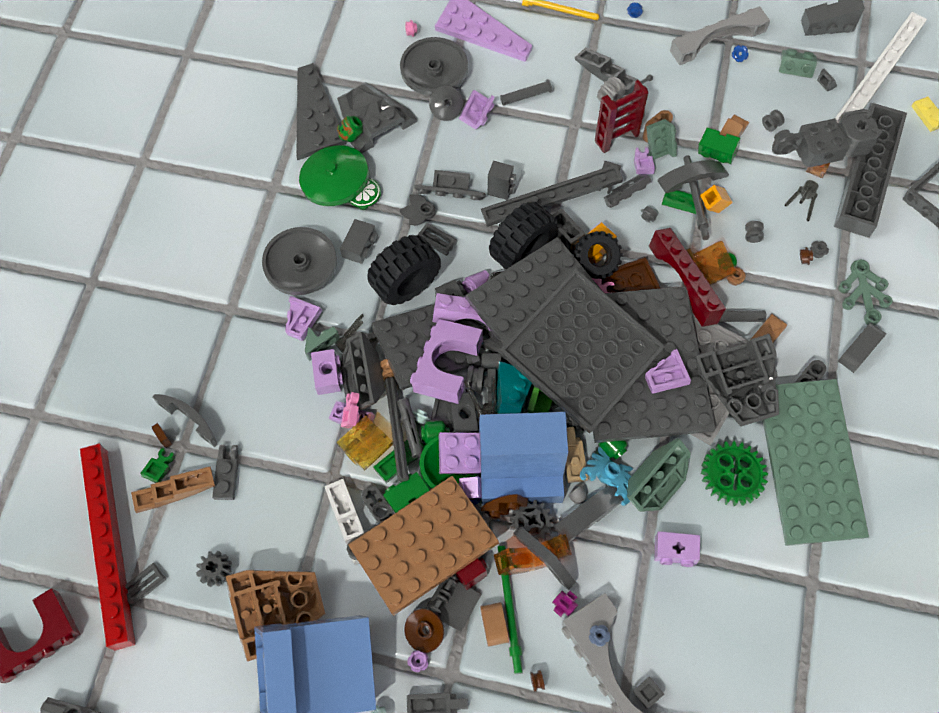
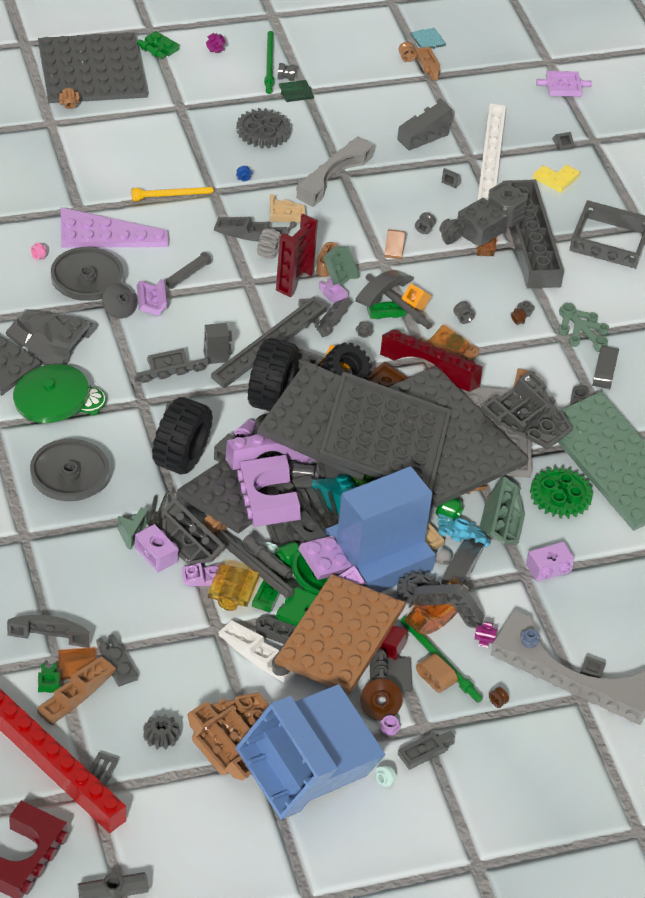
camera: 35 degrees left, 20 degrees down
(161, 435) = (34, 652): reddish brown tile -> none
(193, 457) = (73, 660): none -> clear orange piece
(300, 318) = (100, 516): lavender wing -> none
(350, 128) = (43, 348): green head -> none
(350, 412) = (206, 565): bright pink plate -> none
(358, 241) = (113, 437): dark grey brick -> none
(415, 211) = (150, 395): dark grey plate -> none
(501, 505) = (393, 575): reddish brown slope -> none
(649, 61) = (285, 211): none -> tan wing
(668, 374) = (466, 430): lavender wing -> none
(718, 146) = (392, 256): green brick -> none
(735, 54) = (363, 175): blue plate -> none
(743, 316) = (497, 377): dark grey pin -> none
(798, 63) = (417, 173): sand green bracket -> none
(807, 191) = (489, 268): clear smoke plant -> none

